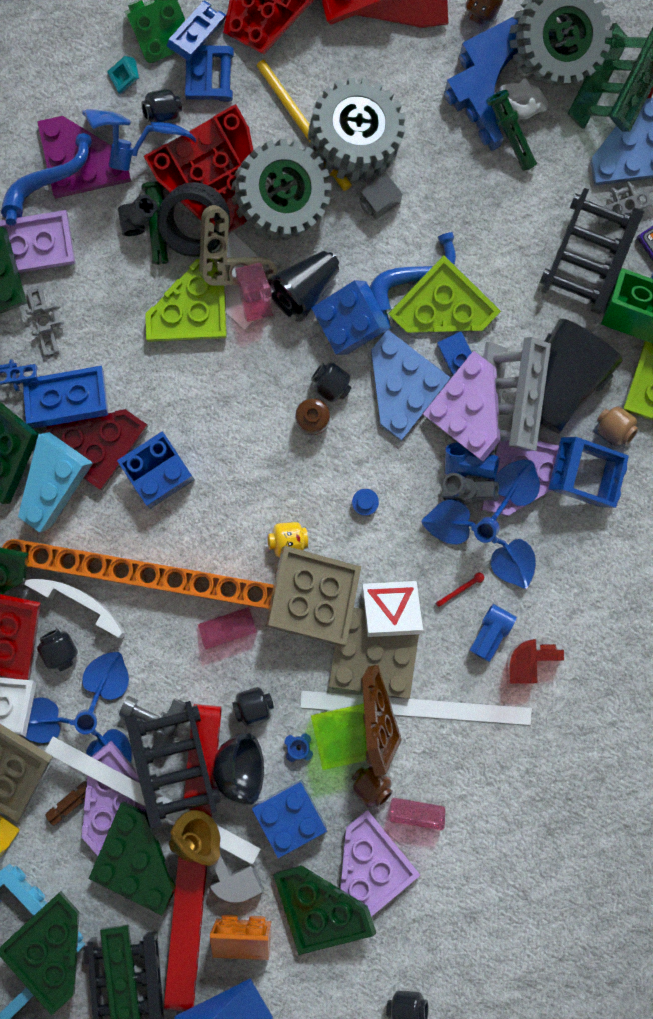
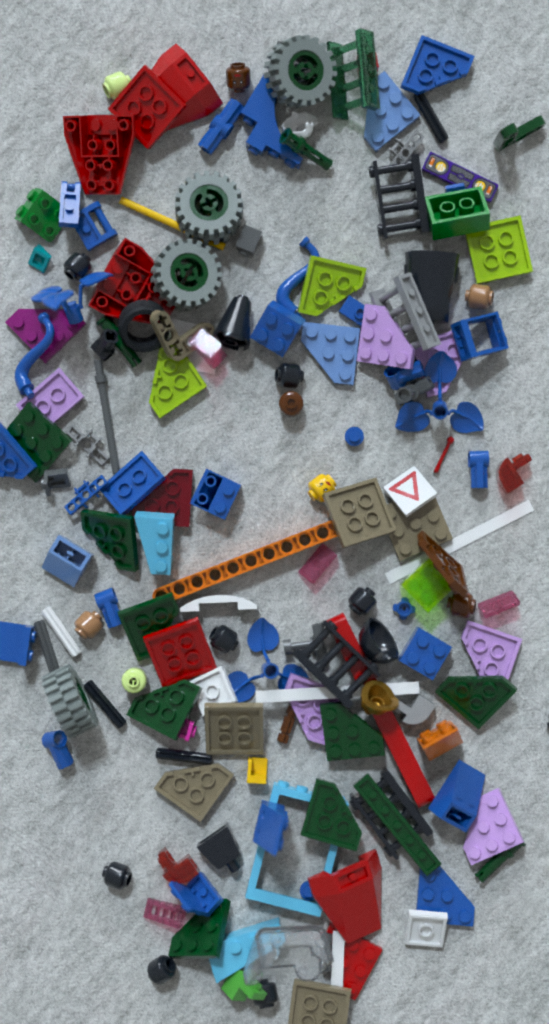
camera: 30 degrees left, 5 degrees up
(106, 255) = (101, 379): none -> dark grey bar
(429, 47) = (221, 126): none -> blue piece

